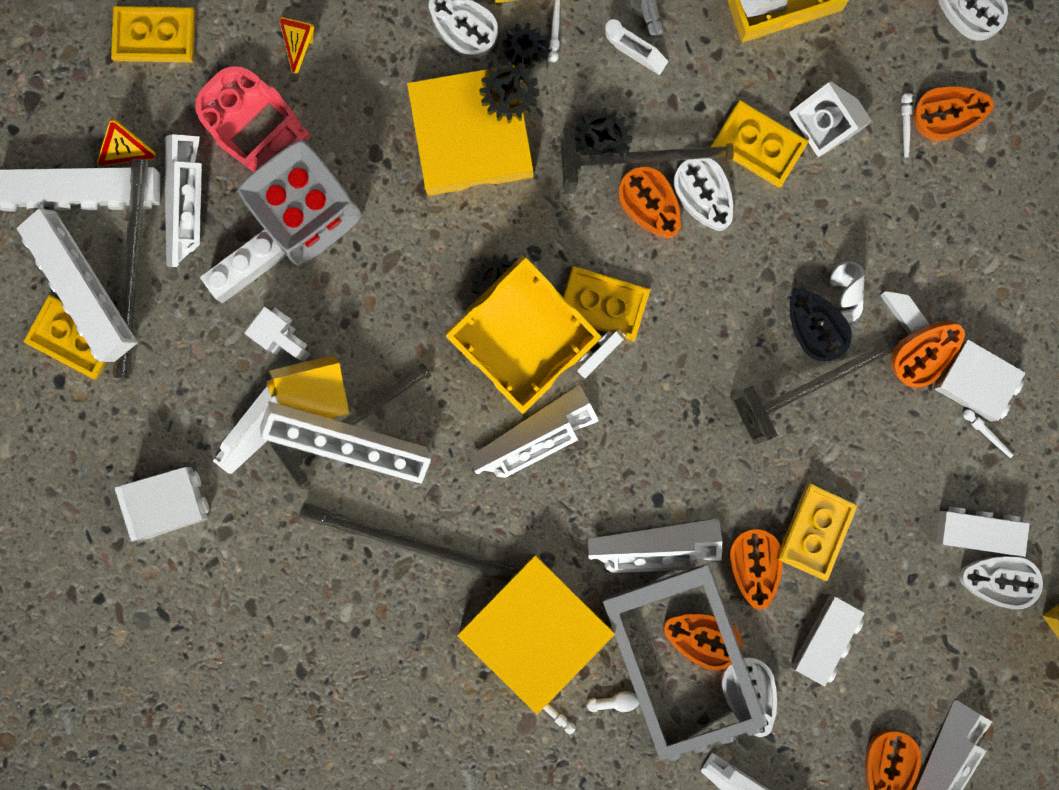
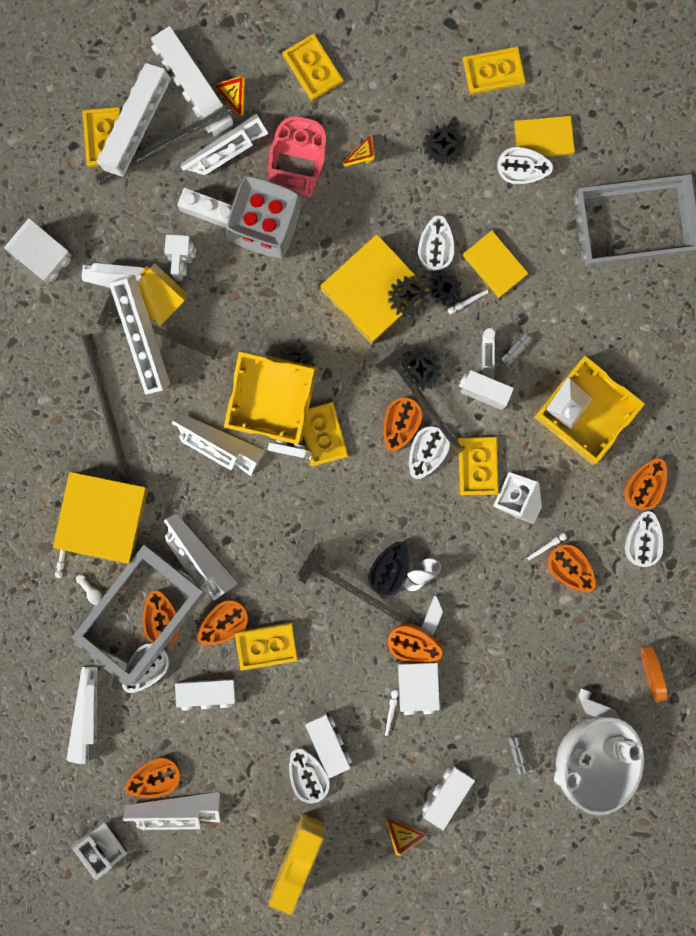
camera: 50 degrees right, 0 degrees up
(678, 74) = (485, 389): none -> white brick

